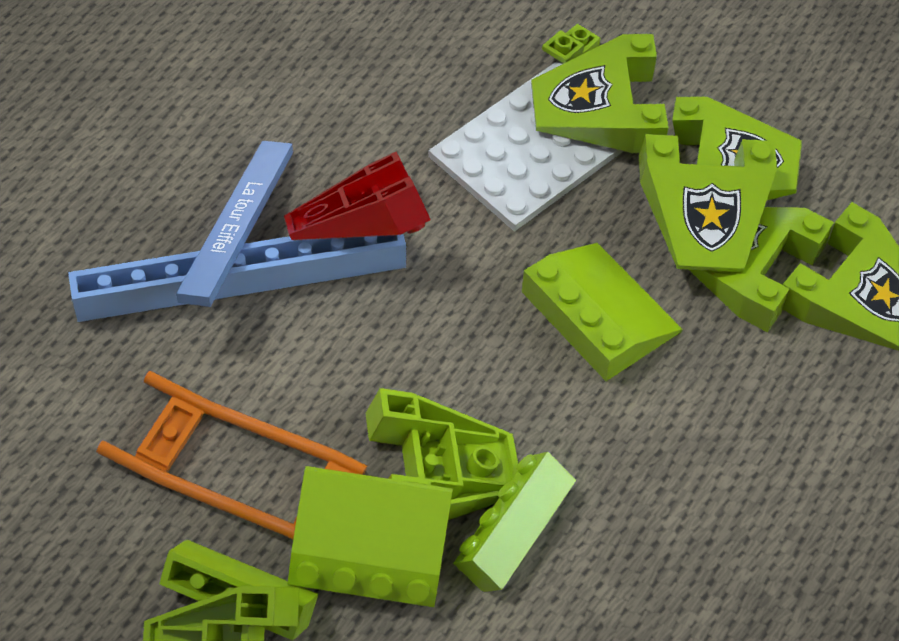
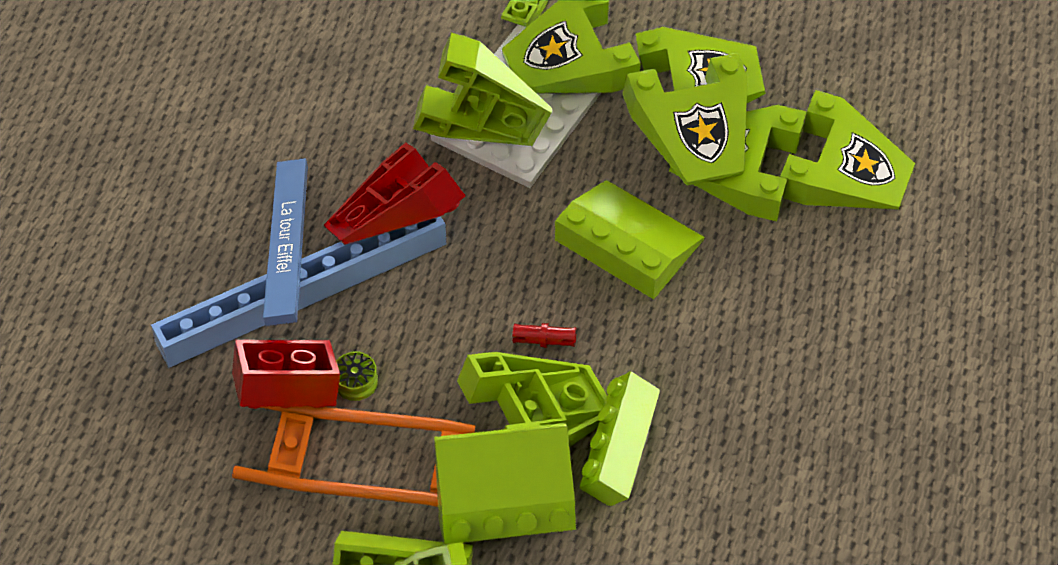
camera: 15 degrees left, 0 degrees up
(185, 358) = (285, 373): none -> red brick
(252, 376) = (349, 385): none -> lime wheel
(474, 389) = (544, 335): none -> red pin
(491, 131) = (487, 103): none -> lime wedge

